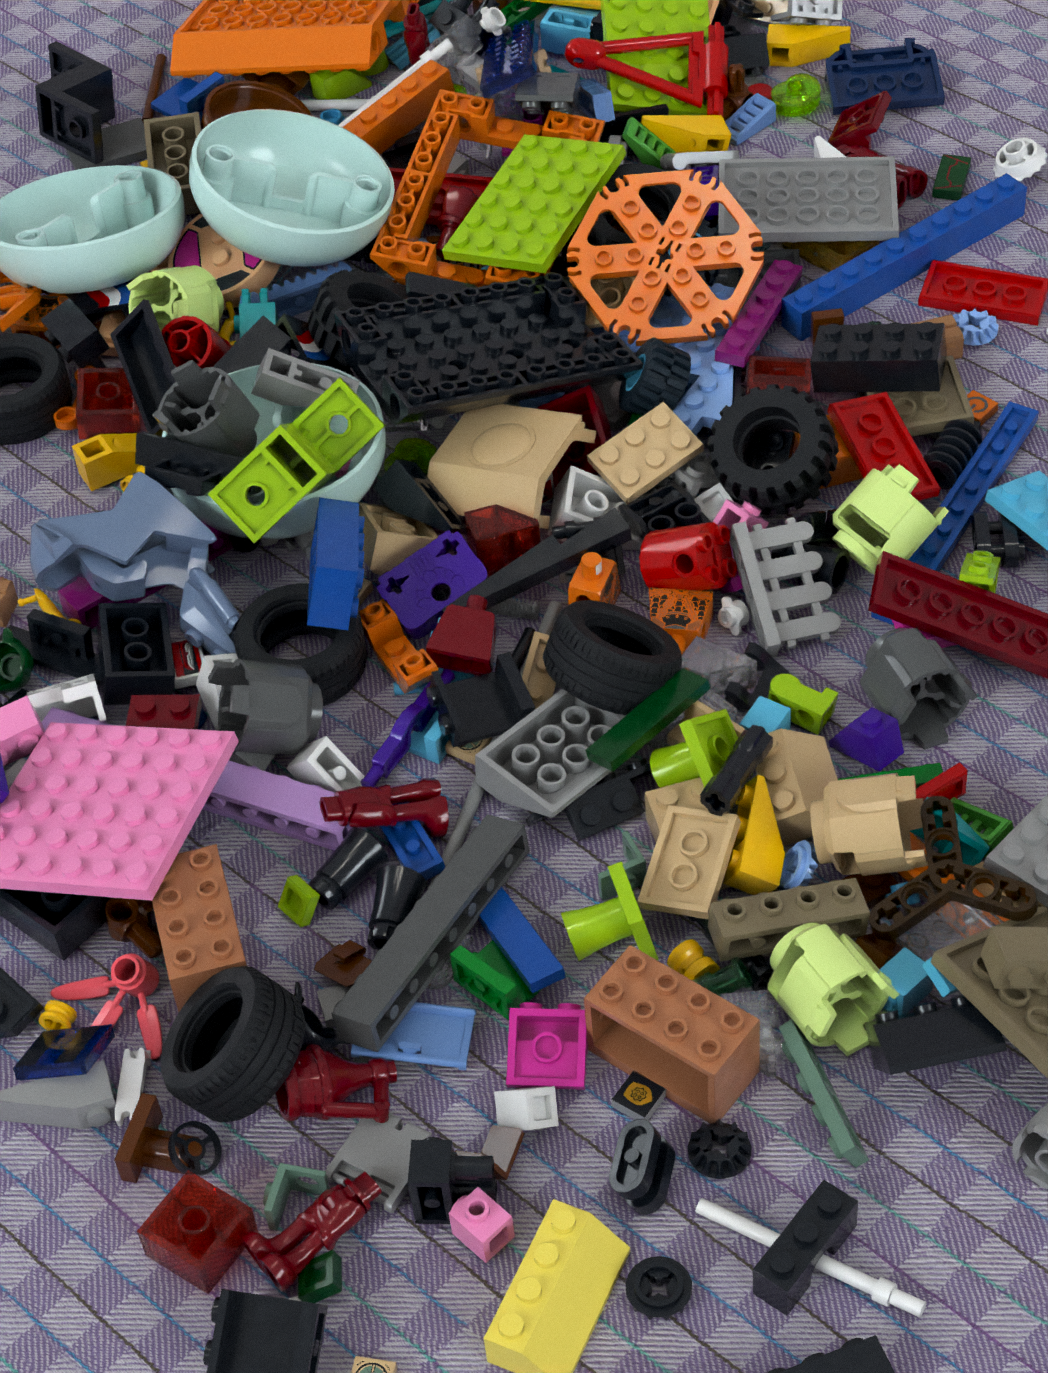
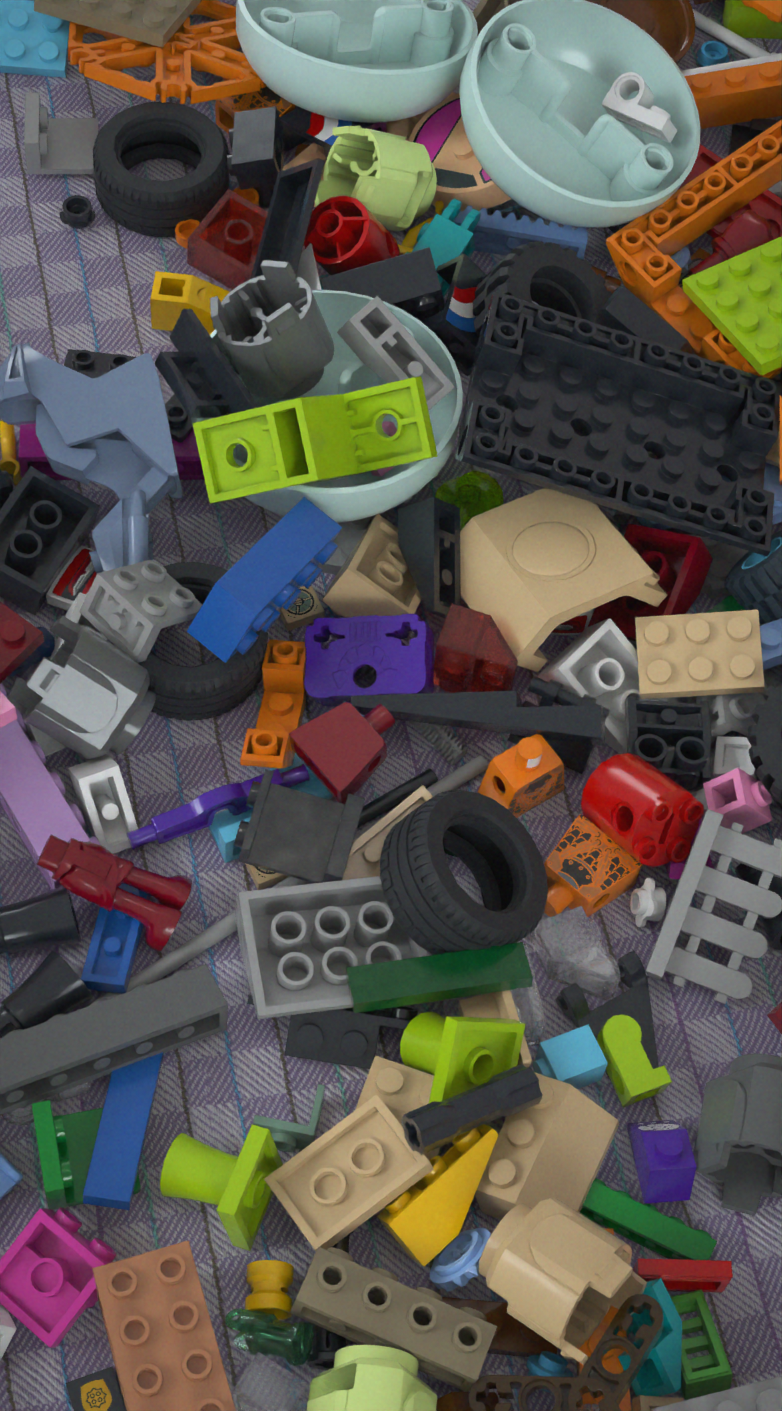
camera: 25 degrees right, 10 degrees up
(257, 633) = (134, 605): none -> light grey bracket
(342, 165) = (640, 110): none -> white plate

